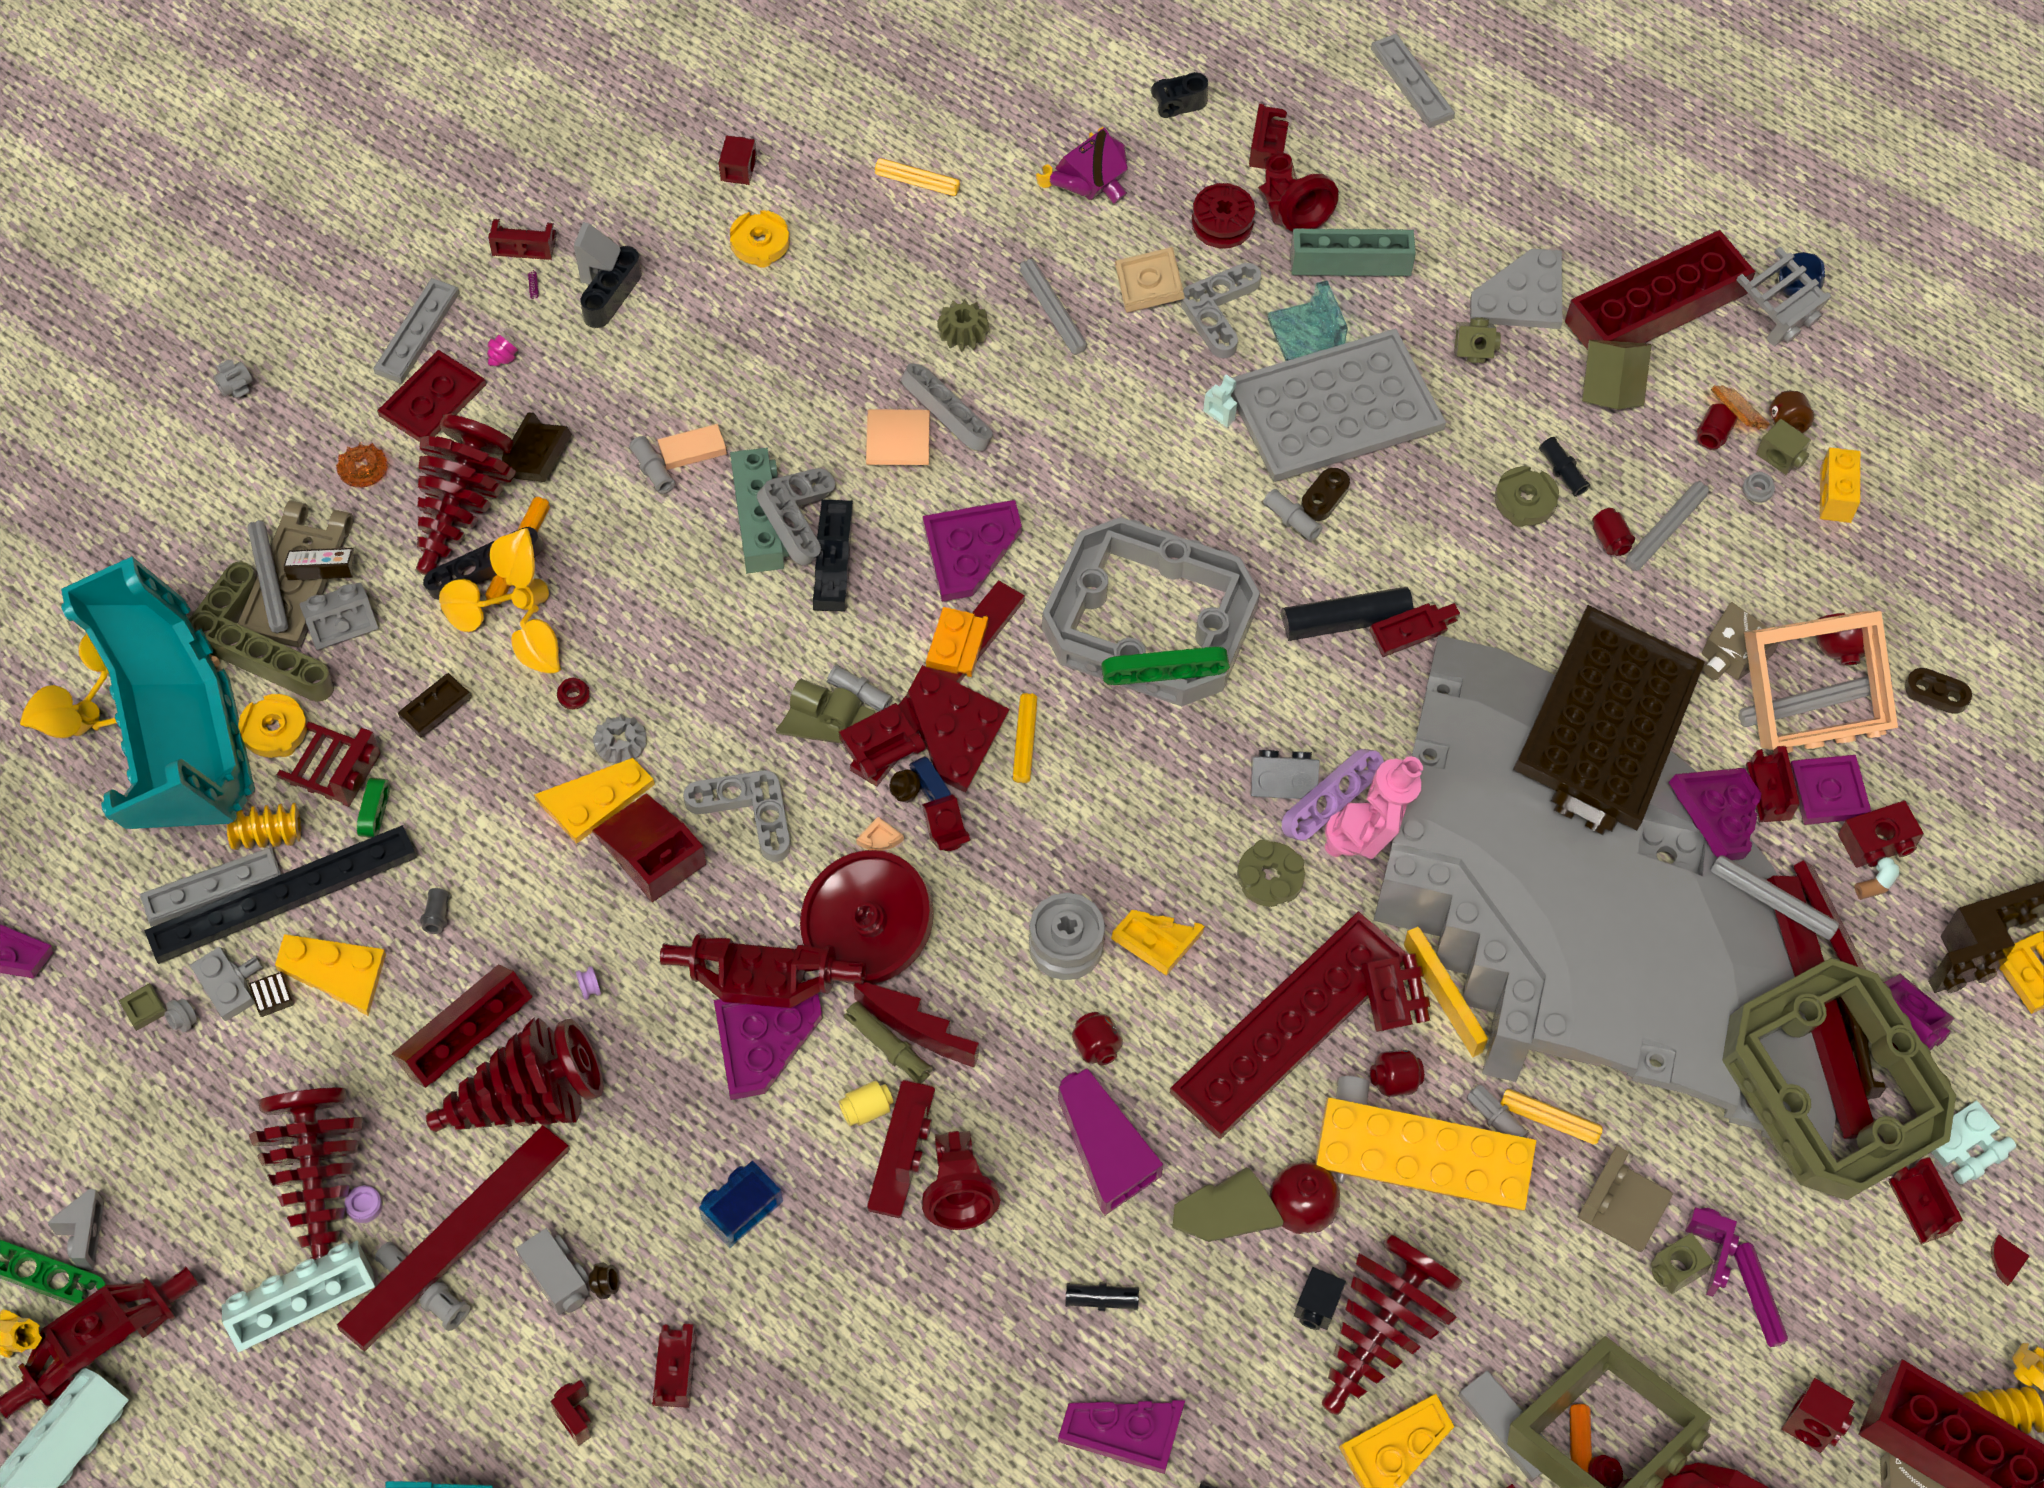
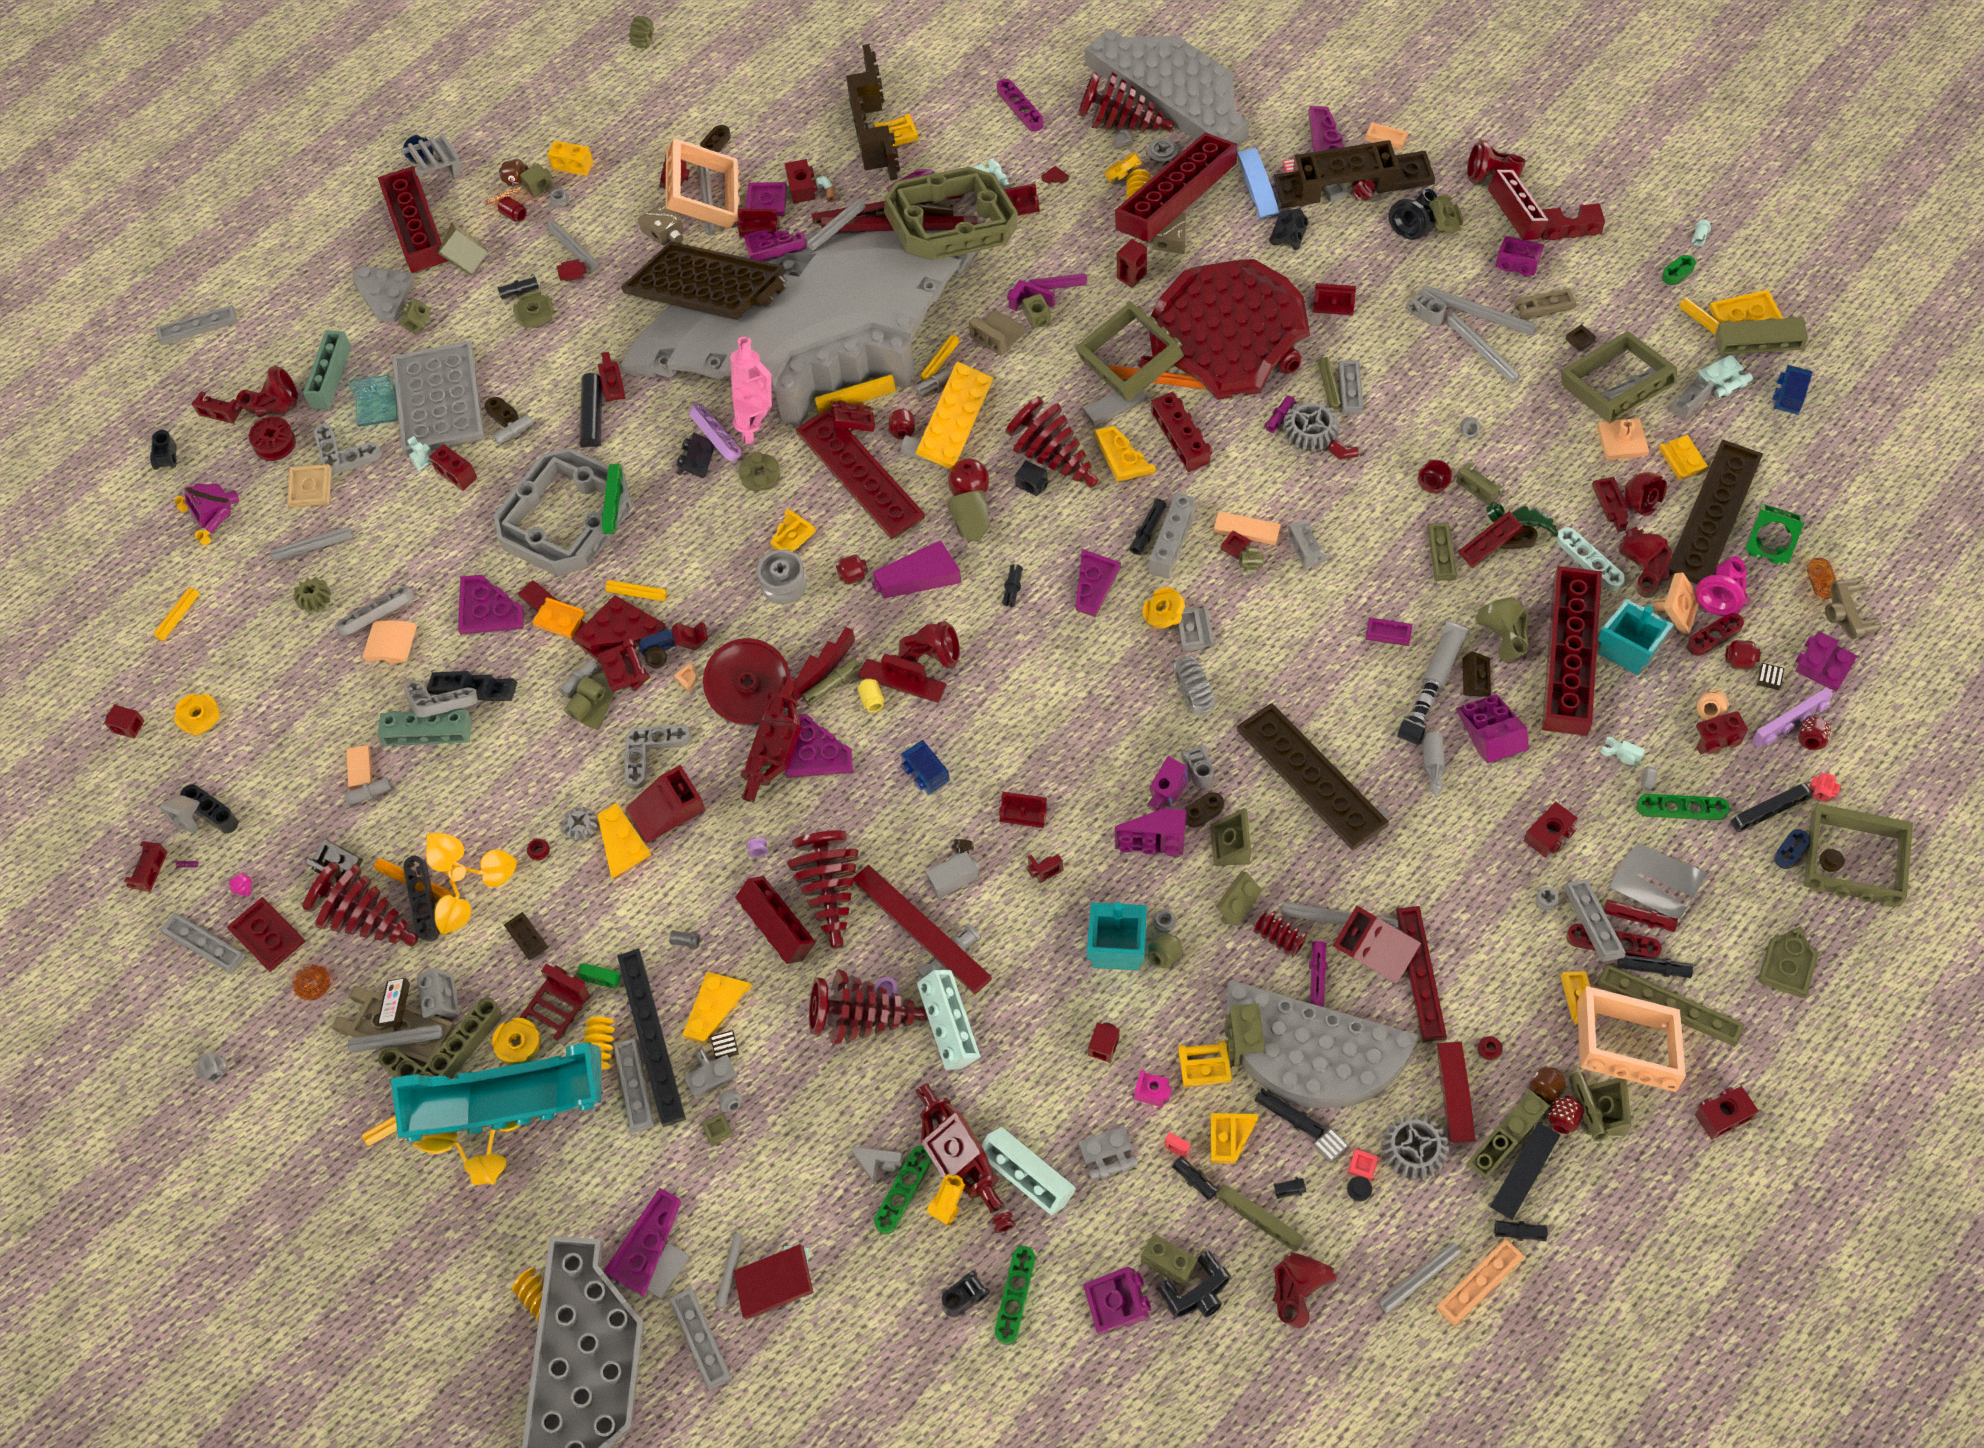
camera: 75 degrees left, 0 degrees up
(1206, 449) = (453, 467): none -> dark red brick

